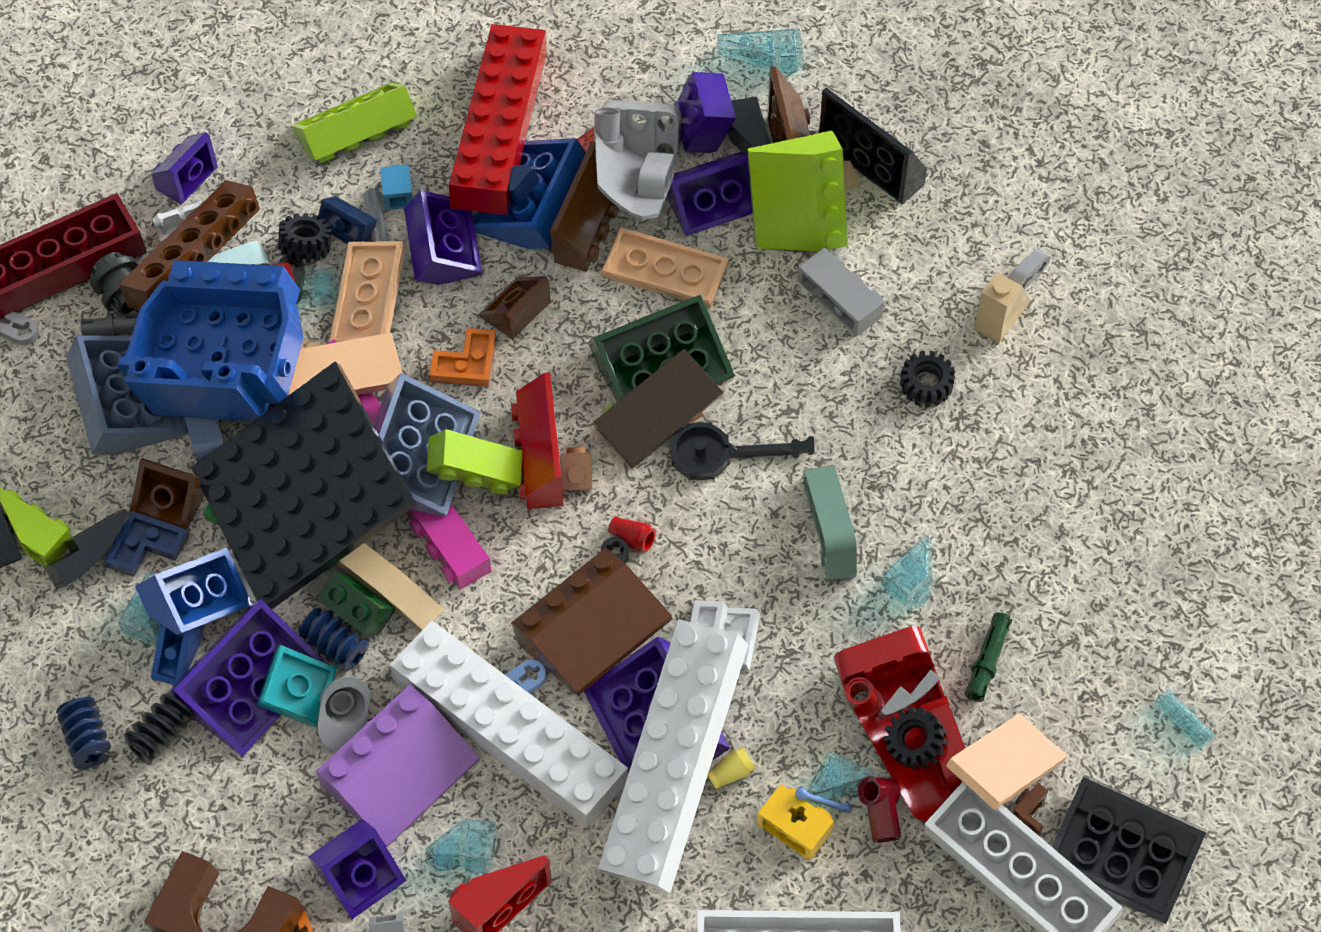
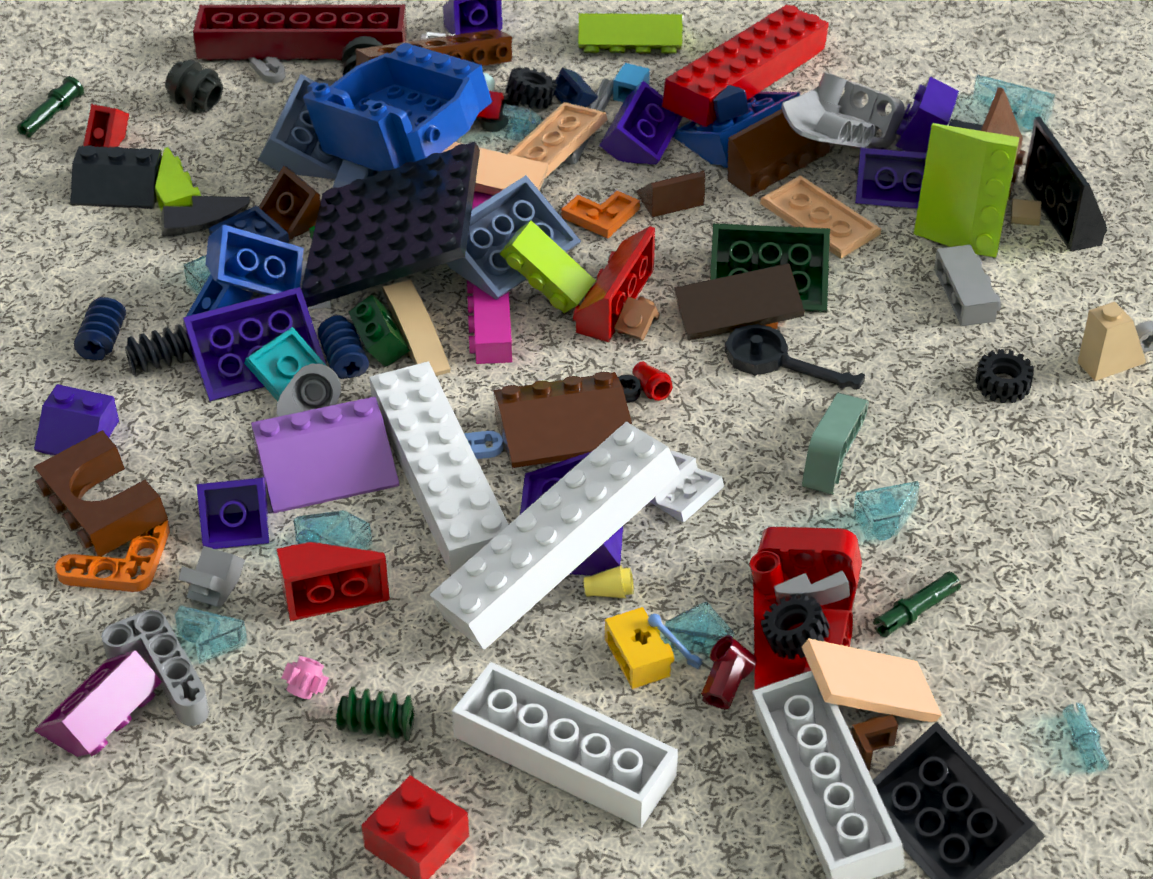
camera: 30 degrees right, 15 degrees down
(139, 850) = (73, 416): none -> dark purple slope

